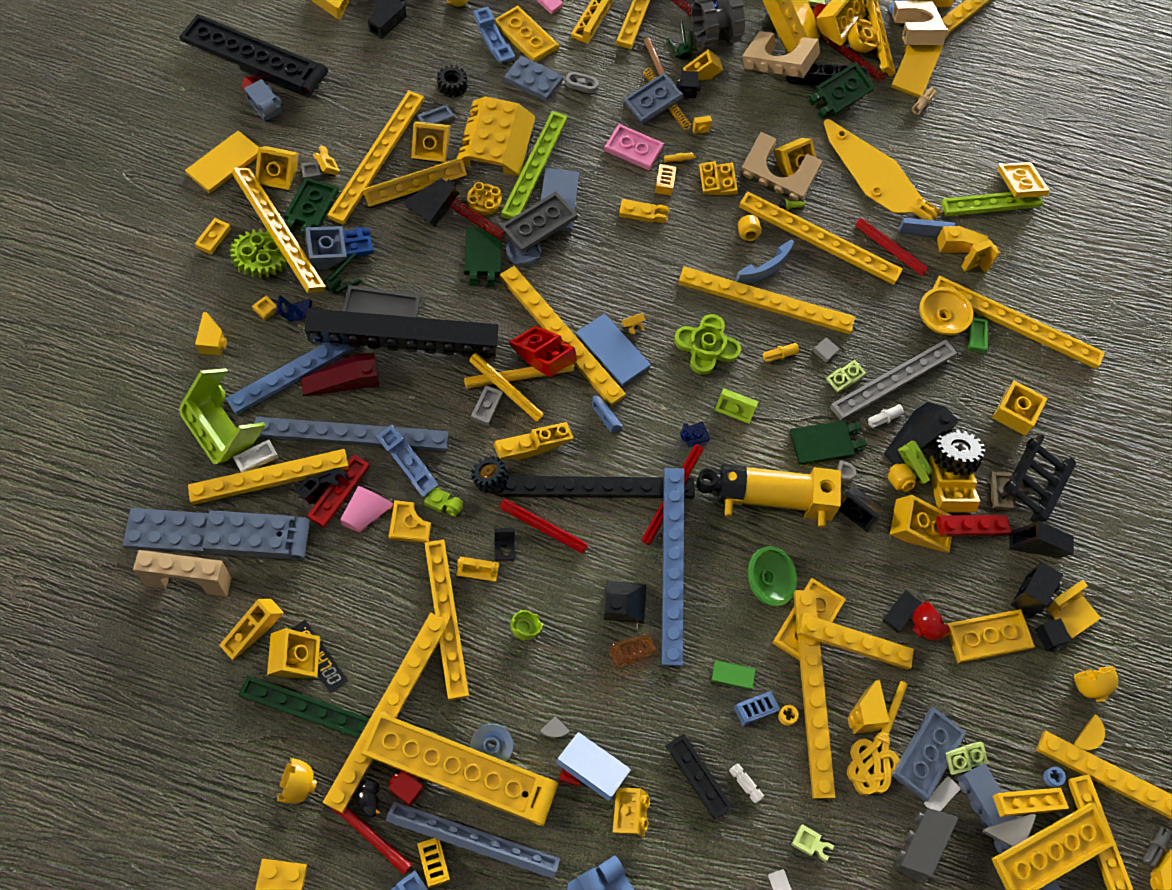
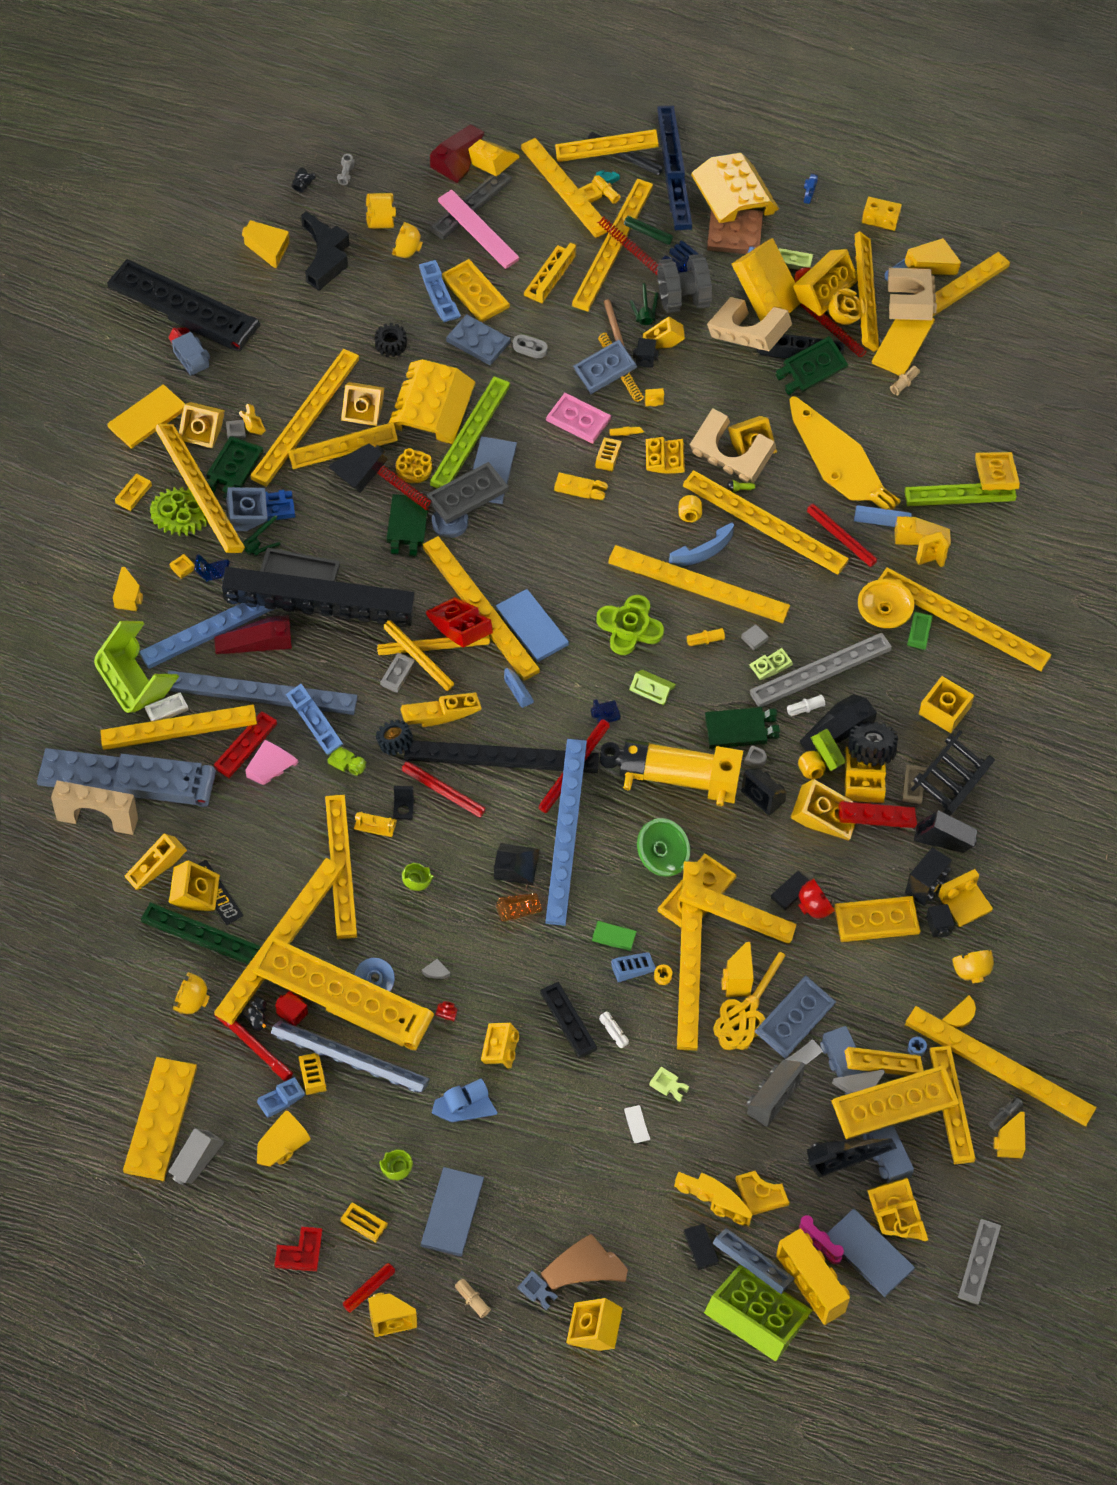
camera: 10 degrees right, 5 degrees down
(314, 486) = (221, 738): black piece -> none
(407, 524) = (309, 779): yellow tile -> none
(438, 116) = (373, 377): sand blue tile -> none
(593, 766) = (468, 1002): tile -> none
(633, 321) = (556, 597): yellow tile -> none
(966, 757) = (829, 1021): yellowish green slope -> none

